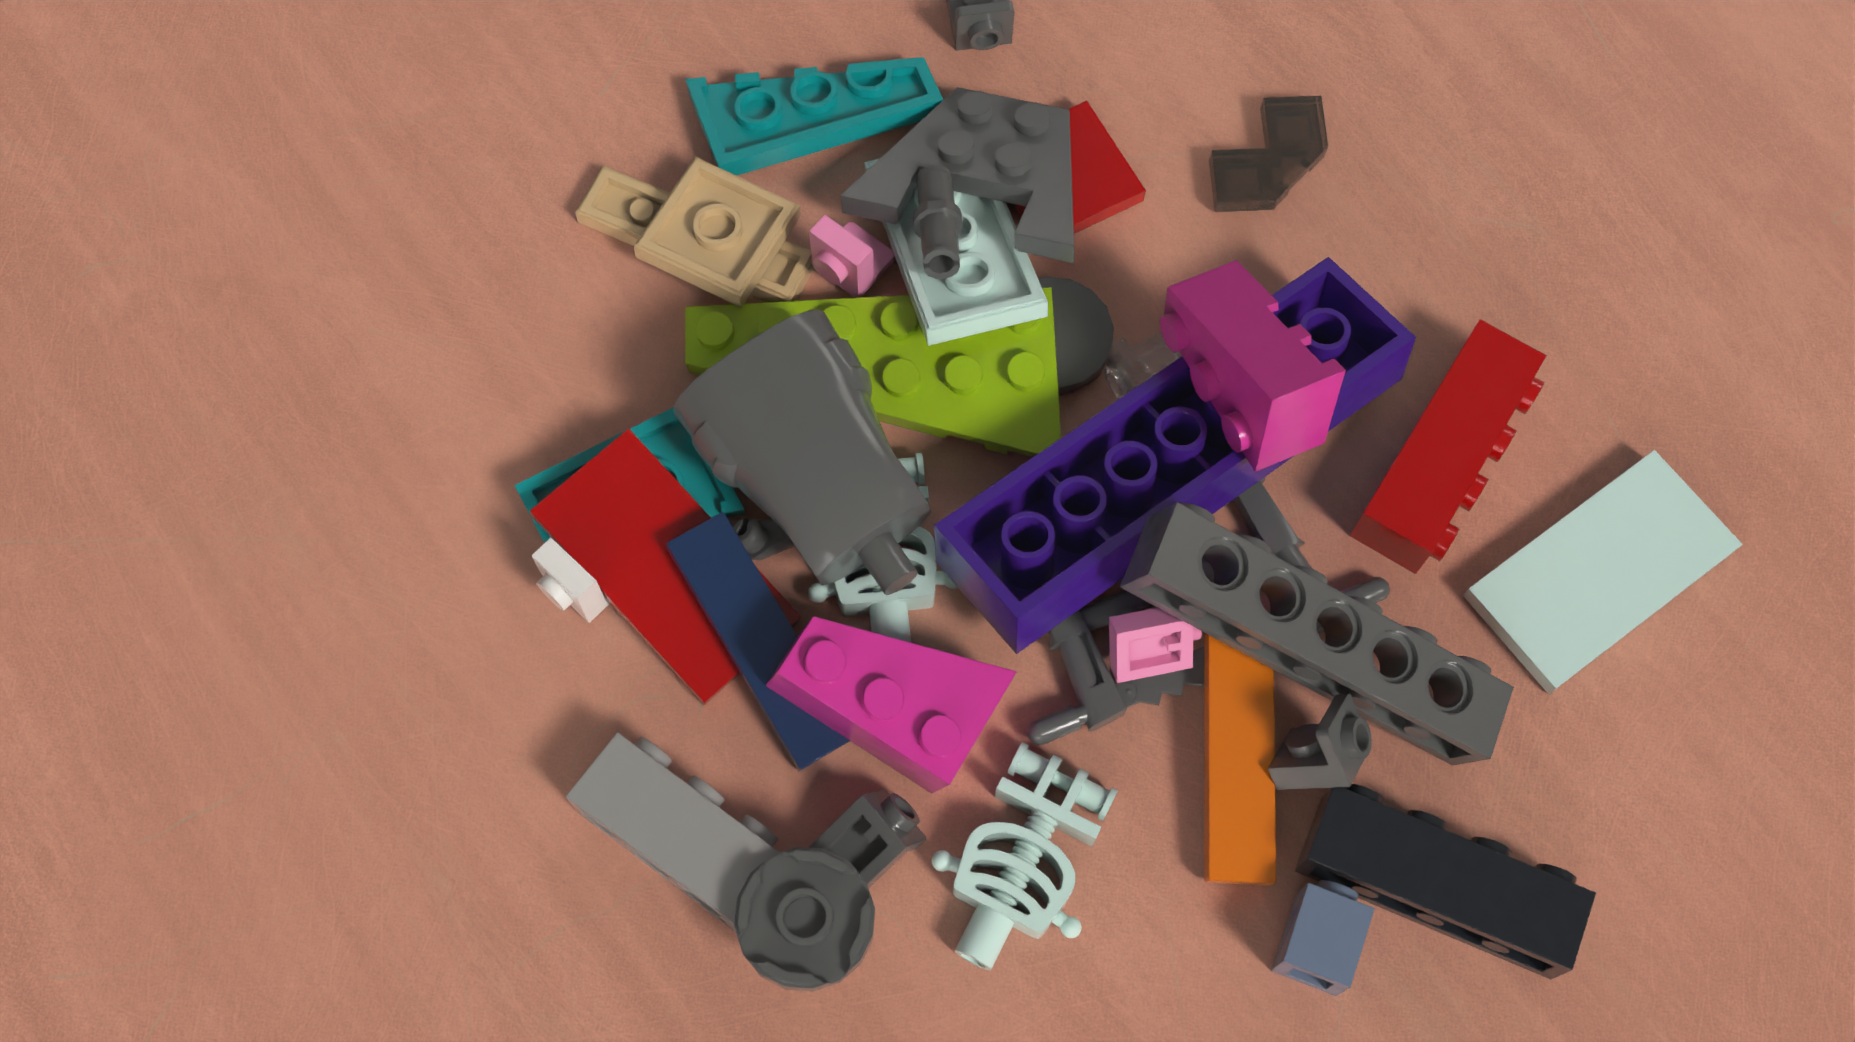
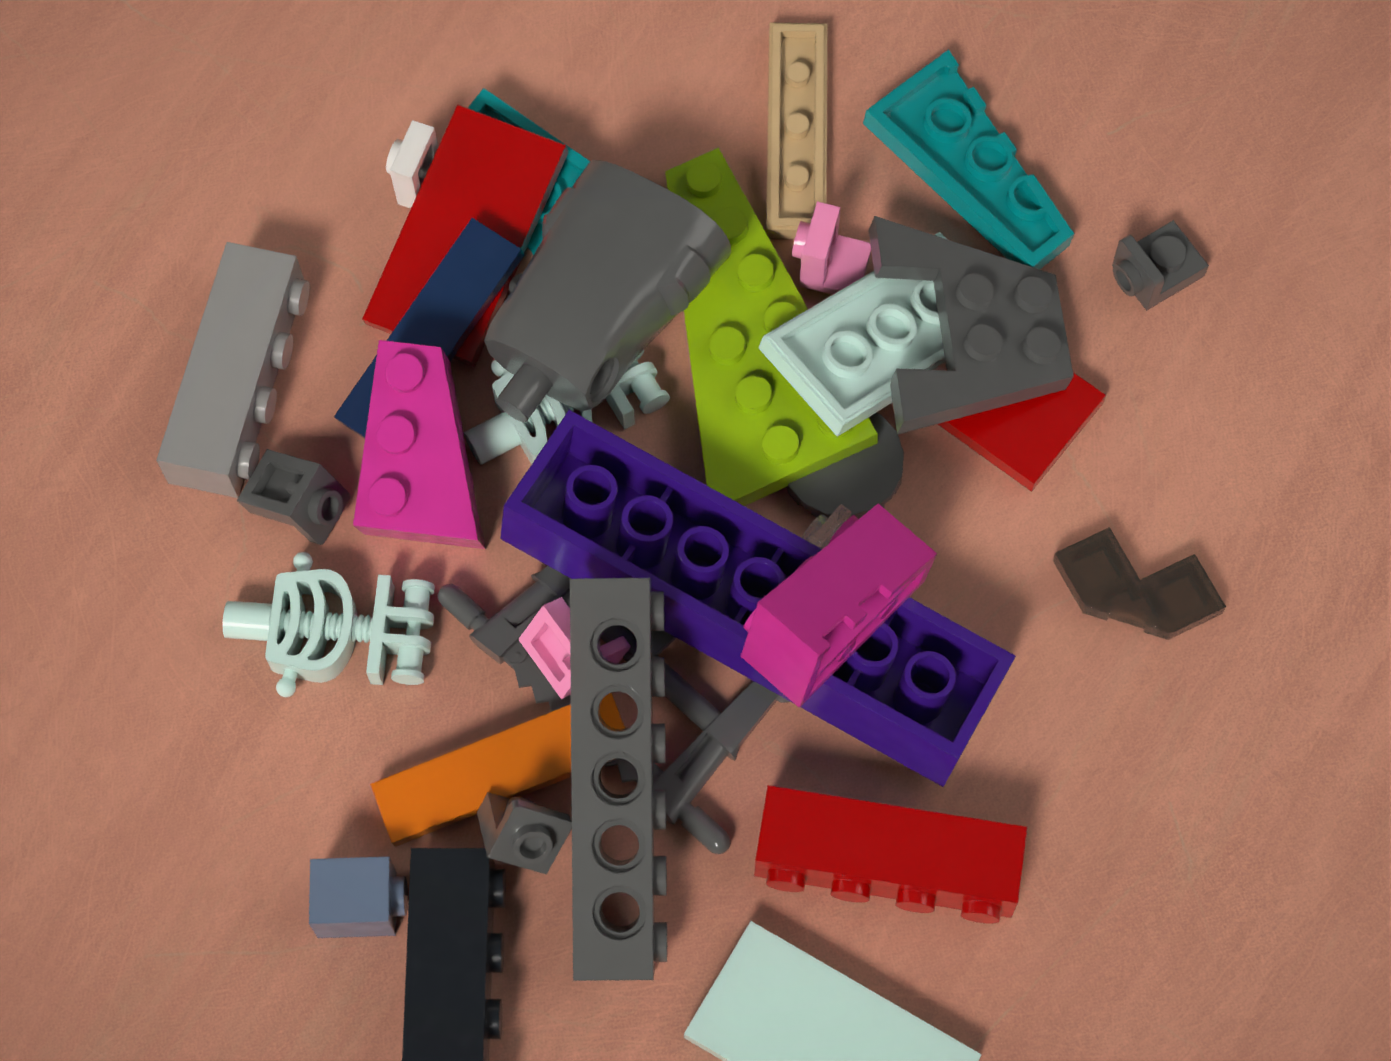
camera: 70 degrees right, 0 degrees up
(717, 231) = (801, 139): tan tile -> none
(805, 919) = (193, 460): dark grey tile -> none
(938, 222) = (881, 303): dark grey pin -> none

